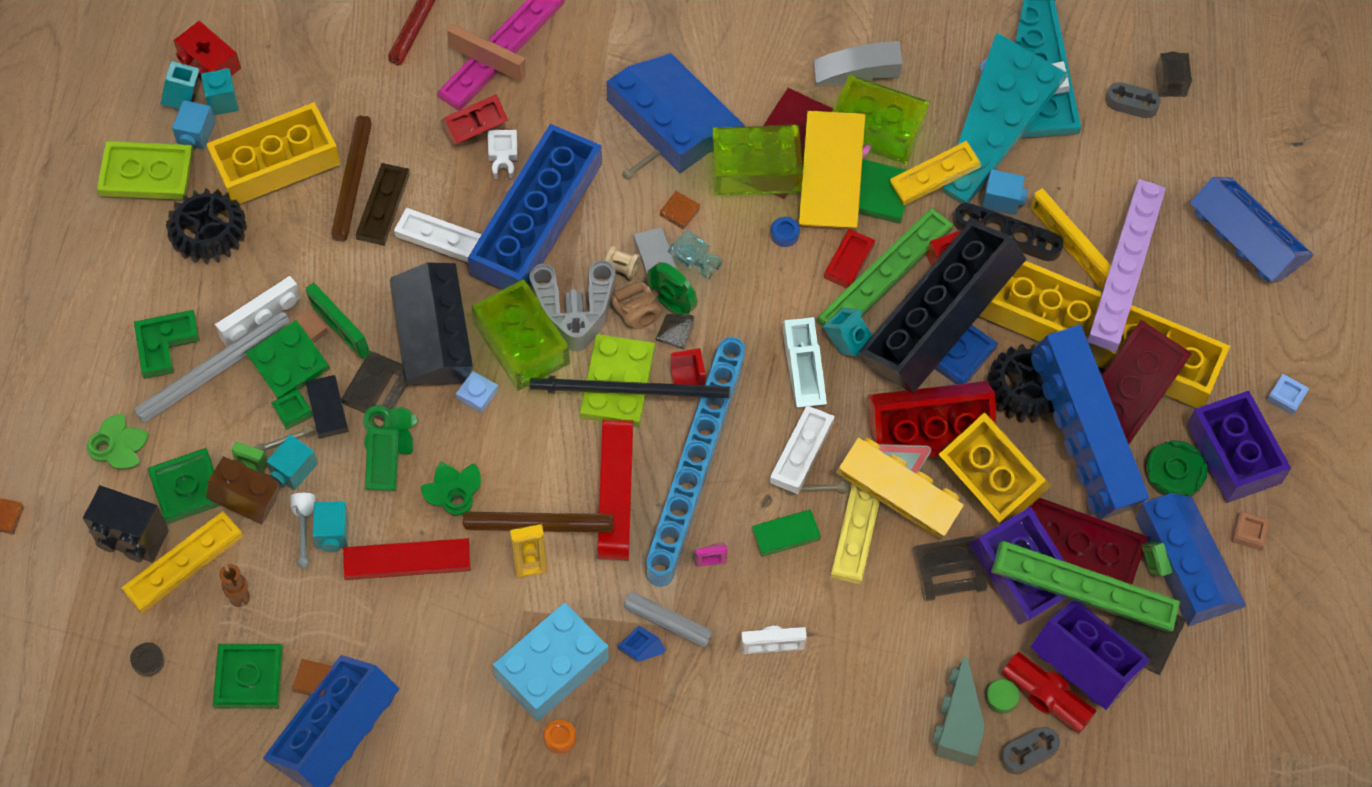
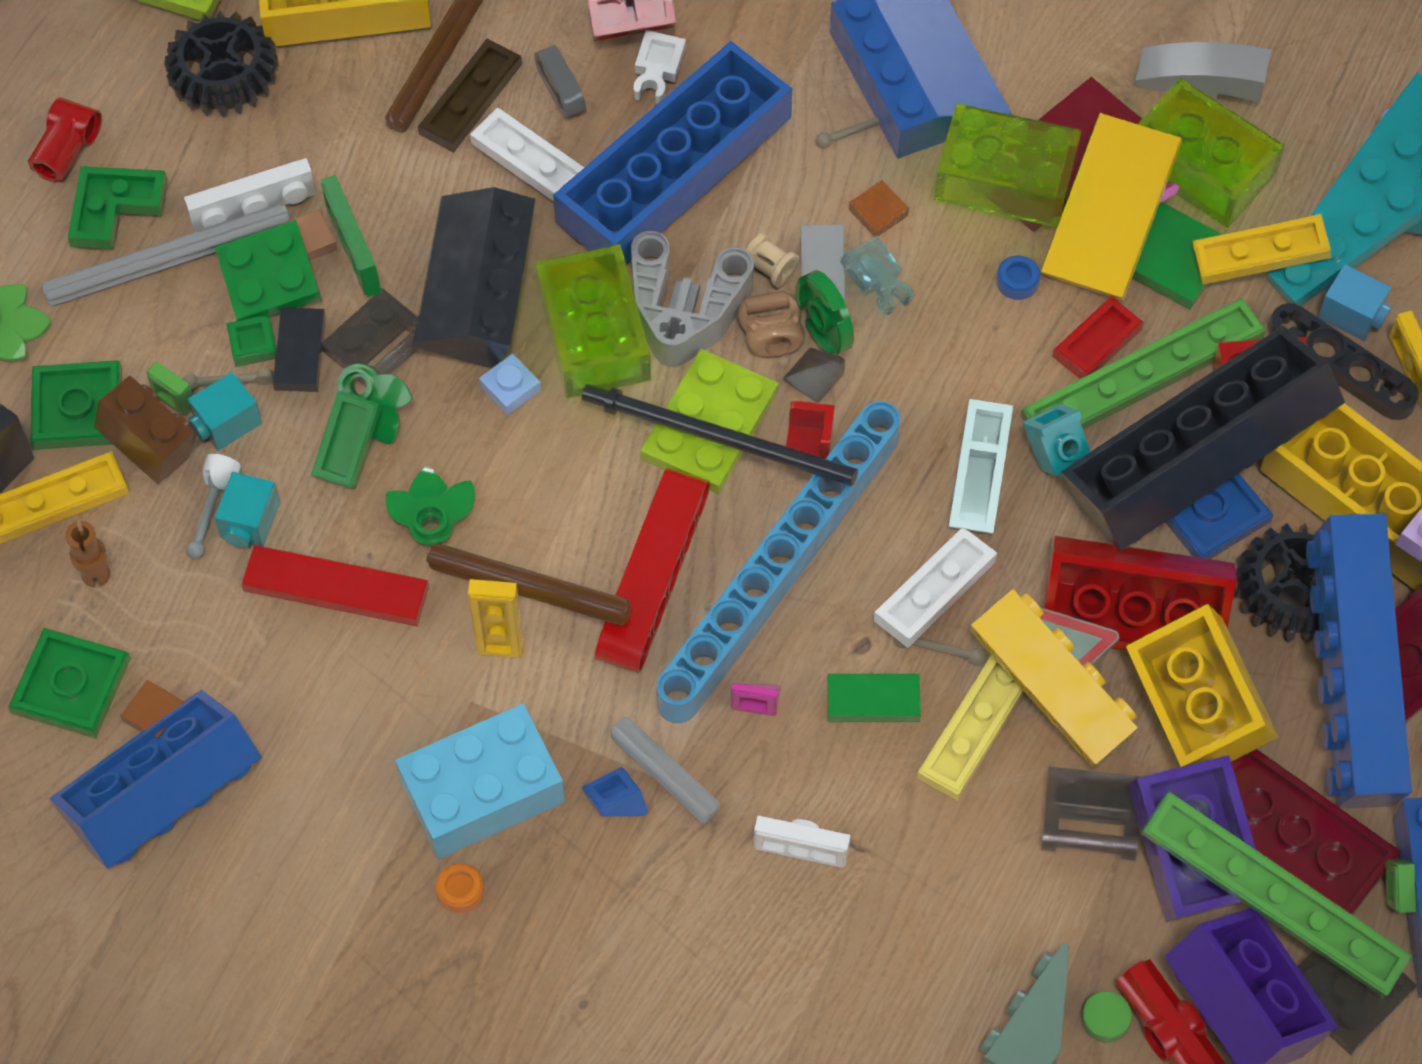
camera: 20 degrees right, 0 degrees up
(115, 299) = (68, 129): none -> red piece
(441, 179) = (560, 81): none -> dark grey beam

